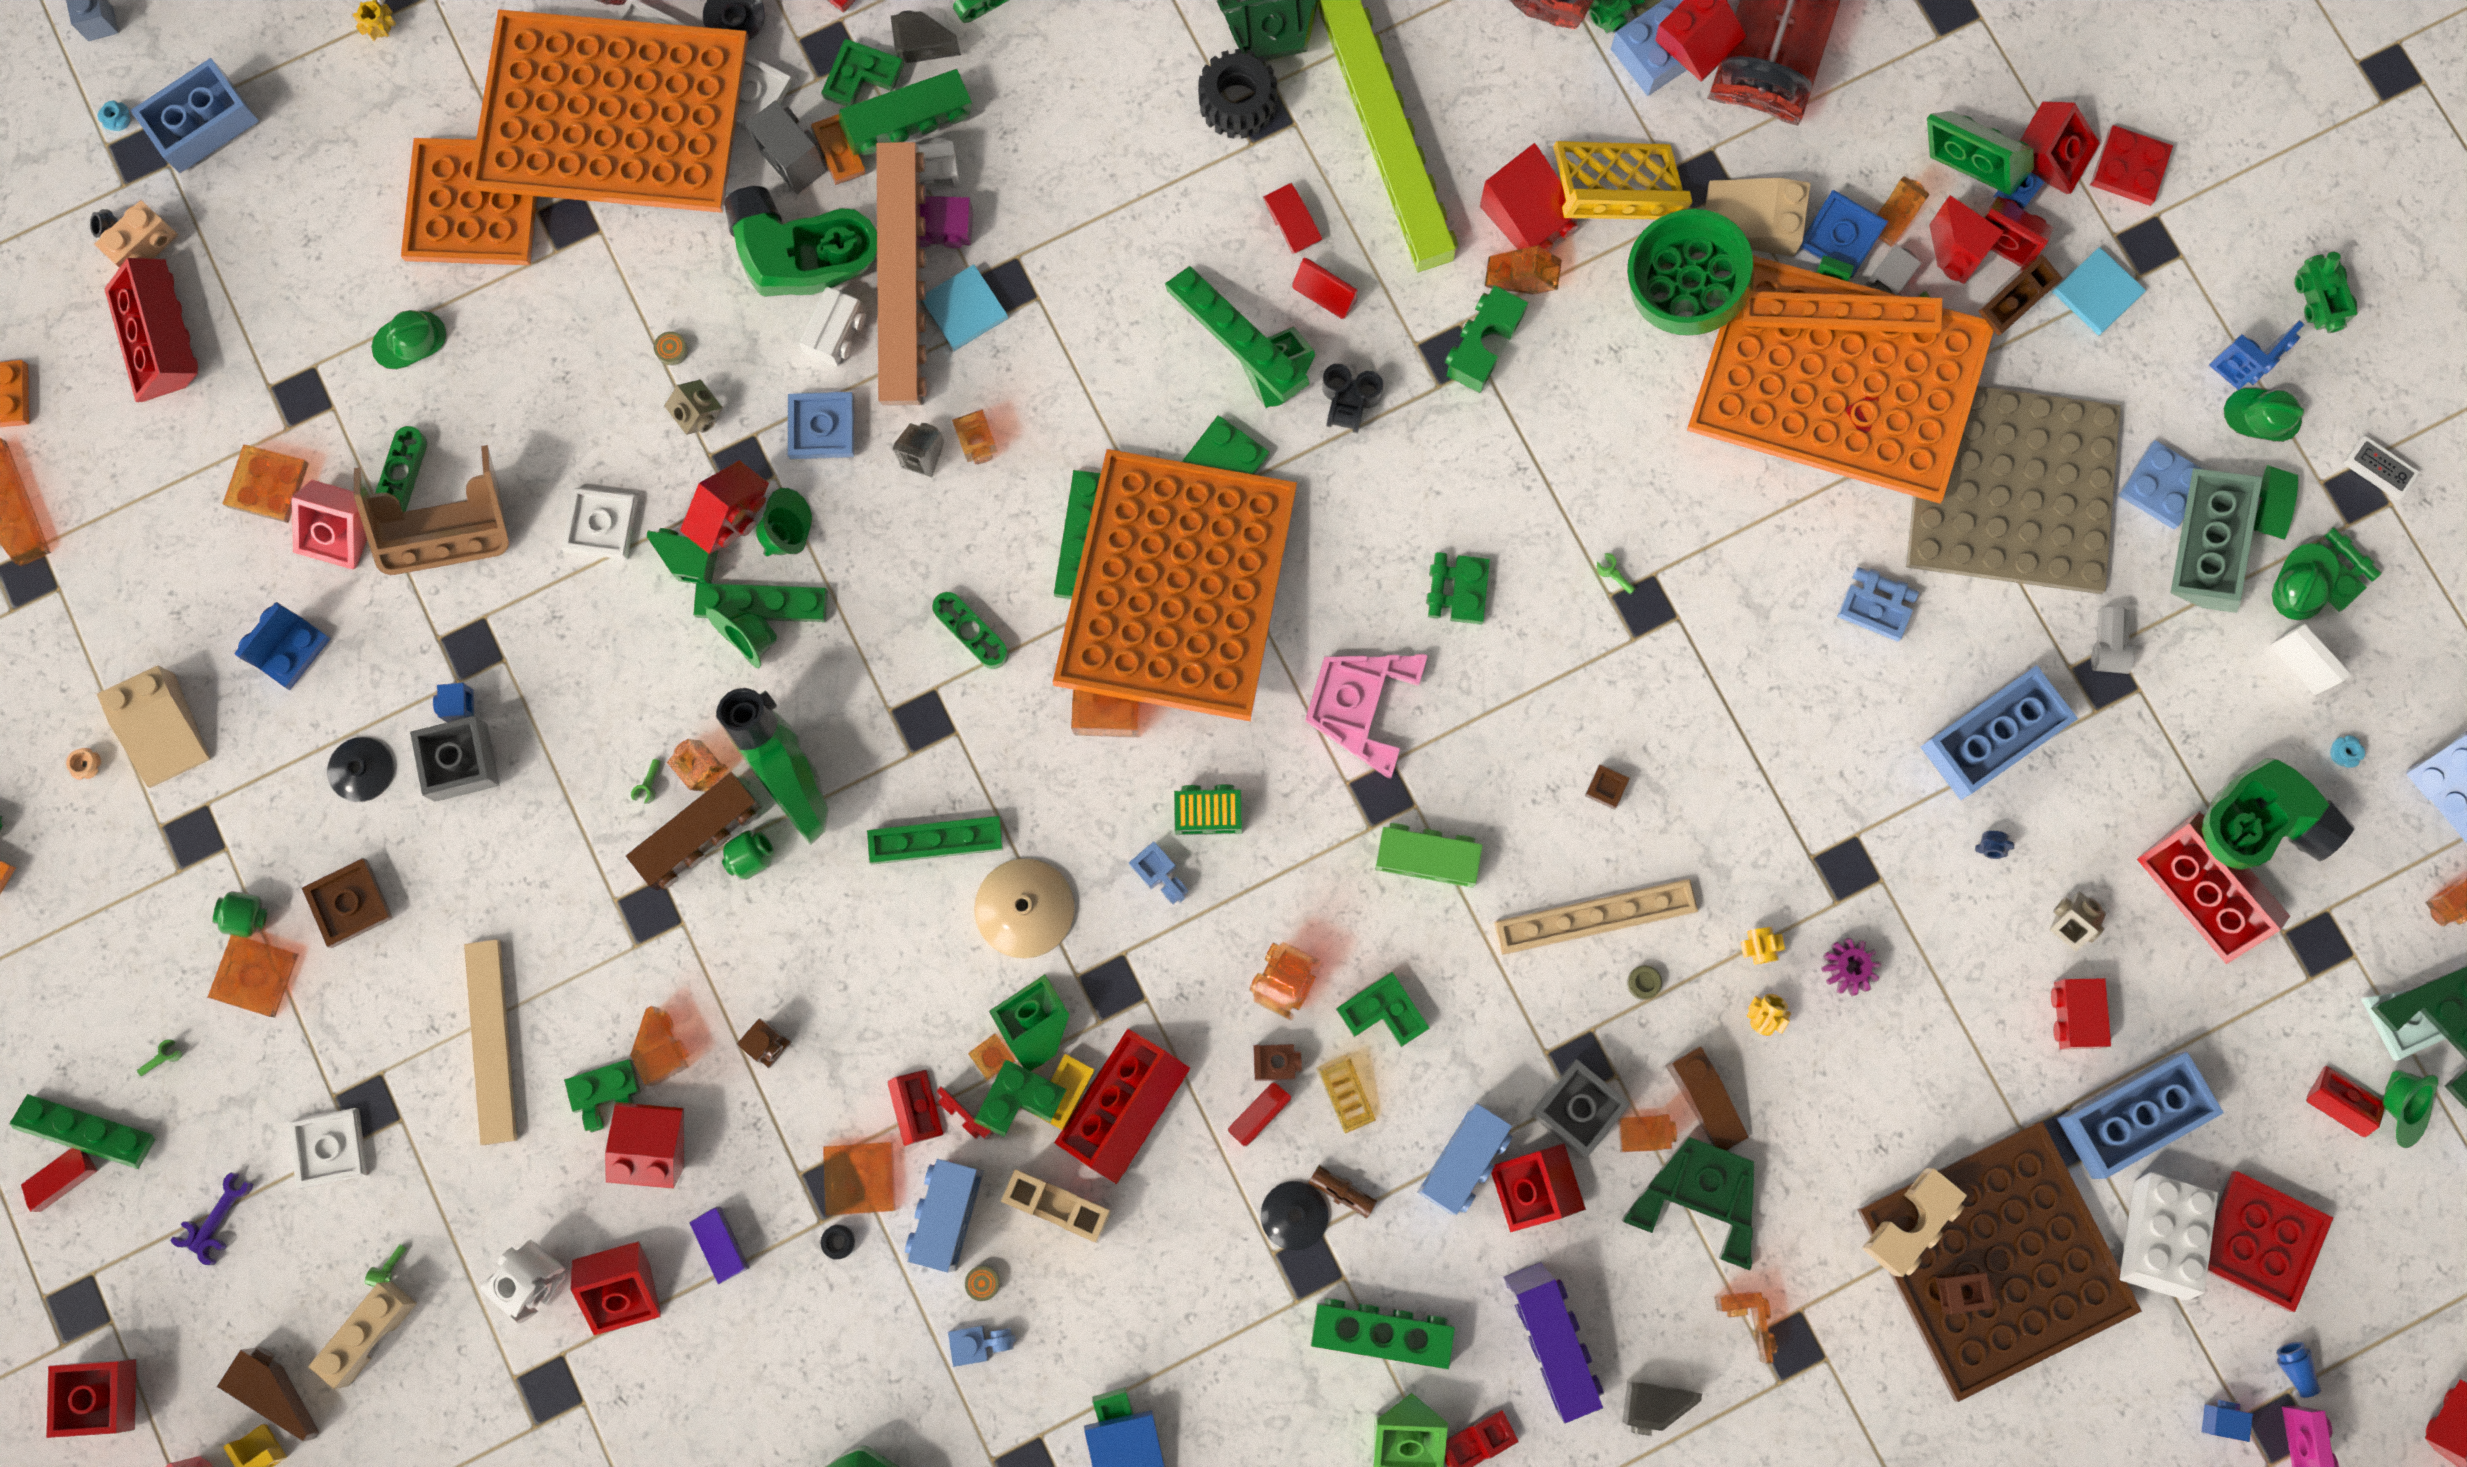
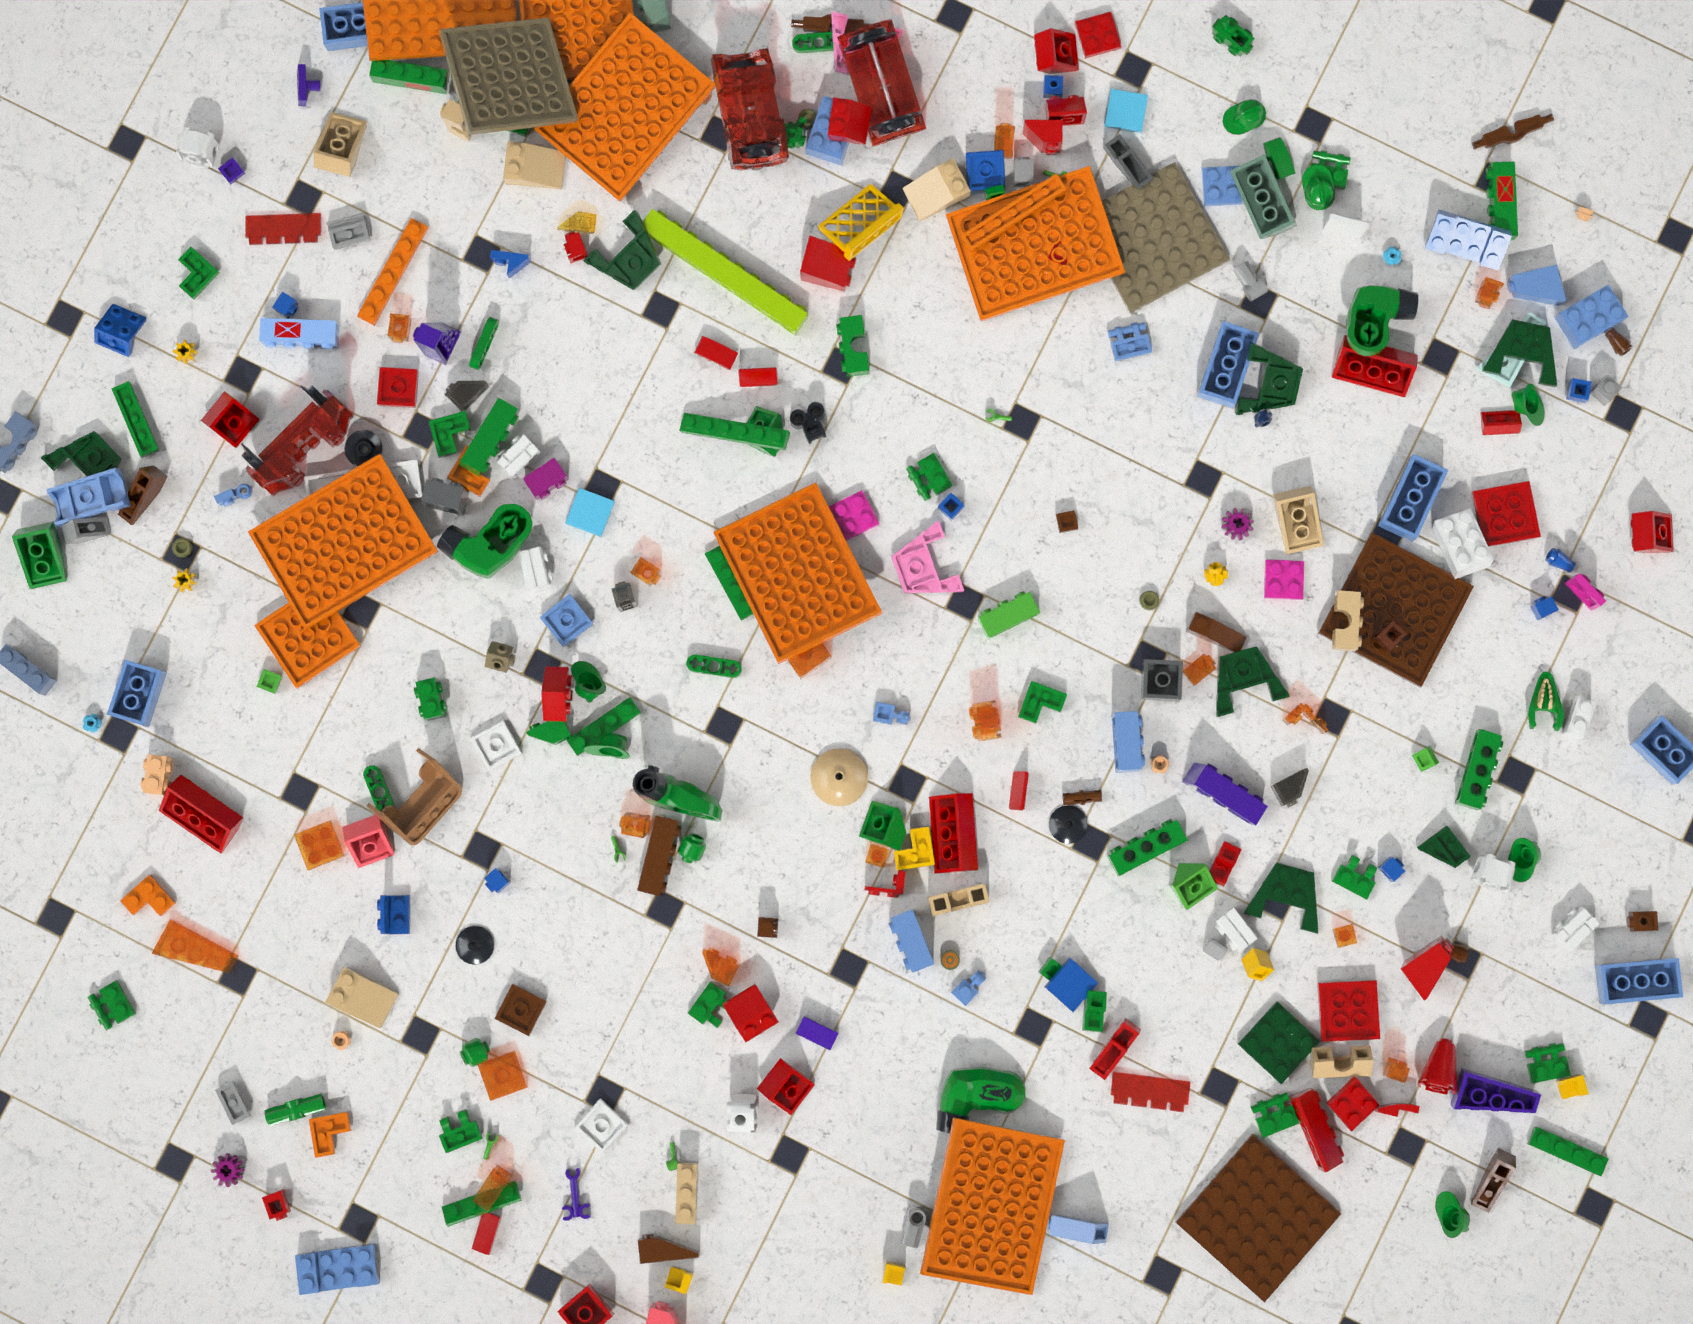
camera: 35 degrees left, 5 degrees up
(101, 221) = (133, 779): black plate -> none
(112, 1118) = (492, 1187): none -> clear orange bracket
(129, 1016) = (460, 1136): none -> green plate
(376, 224) = (269, 681): none -> bright green plate
(408, 339) = (330, 725): green piece -> none
(454, 758) = (519, 906): dark grey brick -> none
(490, 1042) = (638, 1022): tan tile -> none
(560, 397) = (430, 698): none -> green brick
(670, 348) = (463, 636): olive tile -> none
(827, 1242) = (865, 986): black plate -> none
(859, 1178) = (858, 955): clear orange plate -> none
(900, 274) = (550, 520): nougat brick -> none
(915, 1107) = (858, 905): red slope -> none
(935, 840) = (774, 776): green plate -> none
(1018, 1089) = (901, 860): green plate -> none
(1207, 810) = (891, 669): green brick -> none
(1227, 449) = (769, 490): green wing -> none
(1237, 70) = (648, 325): black tyre -> none
(1262, 1062) = (1006, 768): copper brick -> none
(1315, 565) = (854, 515): none -> dark pink plate
(1332, 1067) = (1047, 742): clear yellow slope -> none
(1459, 638) = (951, 500): none -> blue plate
(1497, 1232) = (1154, 762): none -> light nougat plate
(1524, 271) = (847, 299): clear orange slope -> none
(1537, 1188) = (1168, 730): red slope -> none
(1595, 917) = (1105, 586): tan tile -> none
(1674, 241) = (910, 232): green wheel -> none
(1763, 945) = (1190, 544): yellow gear -> none
(1862, 1095) = (1284, 579): none -> dark pink plate
(1945, 1025) = (1298, 519): none -> tan slope
(1979, 151) = (1021, 83): green slope -> none
(2019, 294) = (1090, 143): reddish brown slope -> none
(2052, 358) = (1127, 162): none -> dark grey slope
(2052, 812) = (1278, 383): none -> dark green wing
(2078, 921) = (1324, 427): dark tan brick -> none
(2081, 1014) = (1355, 469): red brick -> none
(2246, 362) = (1218, 101): blue bracket -> none
(2381, 467) = (1316, 104): tile -> none

